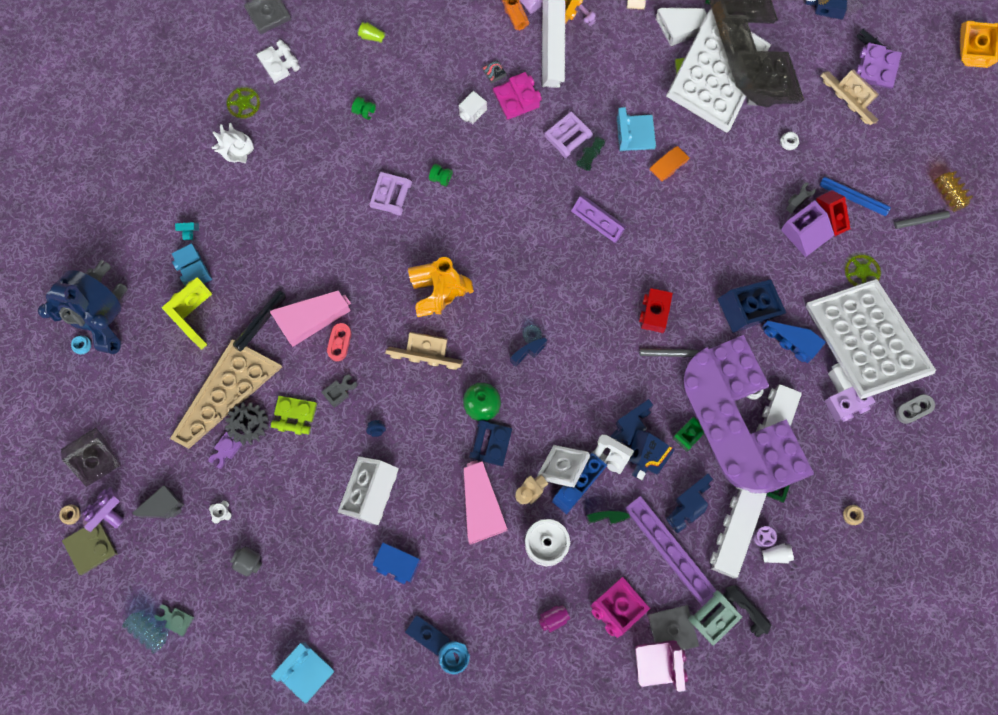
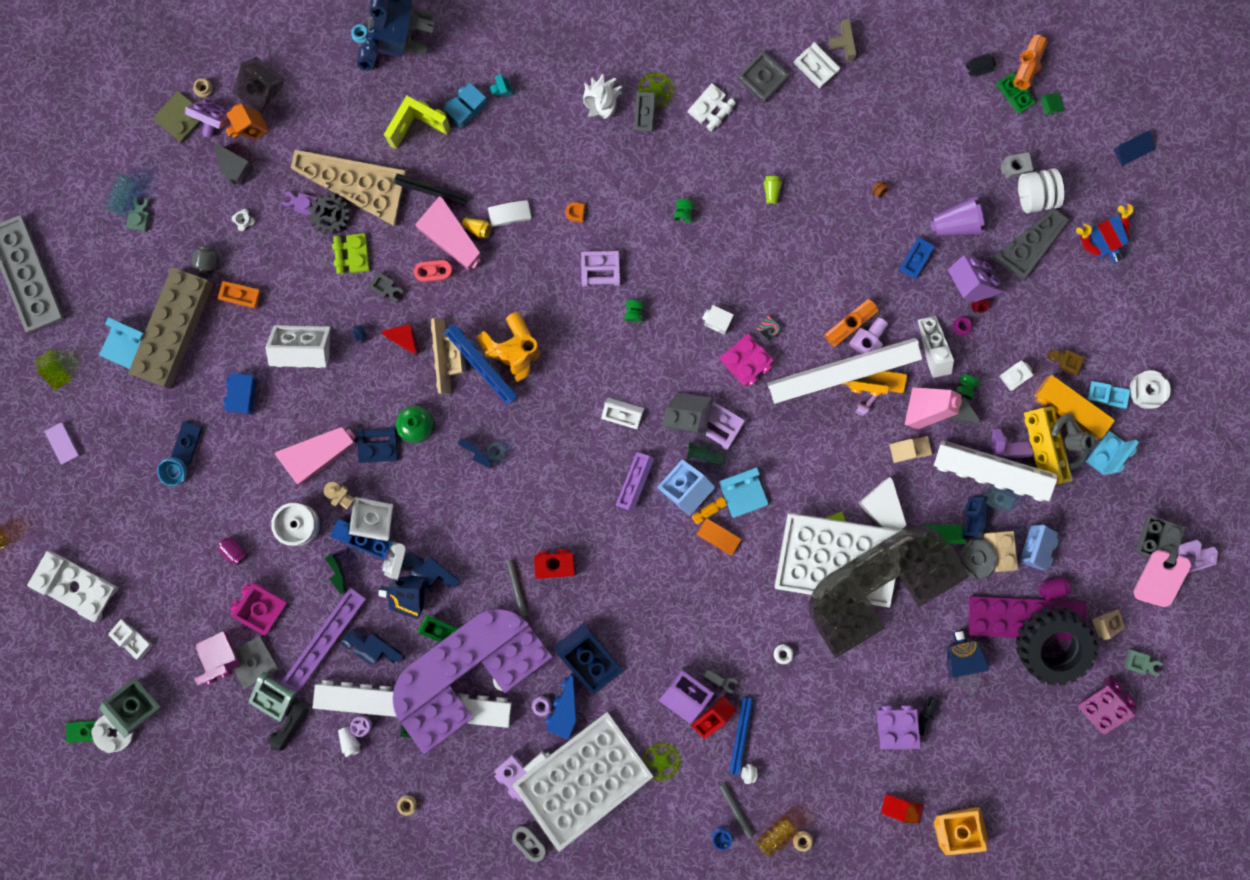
camera: 70 degrees right, 10 degrees up
(124, 475) = (246, 122): none -> orange brick
(260, 114) = (644, 111): none -> dark grey plate
(295, 536) = (239, 294): none -> orange plate
(304, 616) = (170, 328): none -> dark tan brick
(309, 257) = (509, 212): none -> white slope
(312, 289) = (479, 228): none -> yellow cone
(329, 200) = (575, 212): none -> orange tile
(394, 387) = (403, 337): none -> red slope
(444, 320) = (480, 363): none -> blue plate
(531, 213) = (622, 413): none -> white slope
(551, 153) = (688, 413): none -> dark grey slope
(616, 176) = (686, 487): none -> light blue slope
(643, 165) = (709, 510): none -> light orange axle
(786, 355) = (539, 712): none -> lavender plate
(855, 92) = (858, 708): tan bracket -> none
(892, 197) = (749, 774): none -> white plate
(946, 236) = (724, 841): none -> blue wheel
(949, 86) = (901, 809): none -> red slope
(965, 168) = (809, 841): none -> tan plate

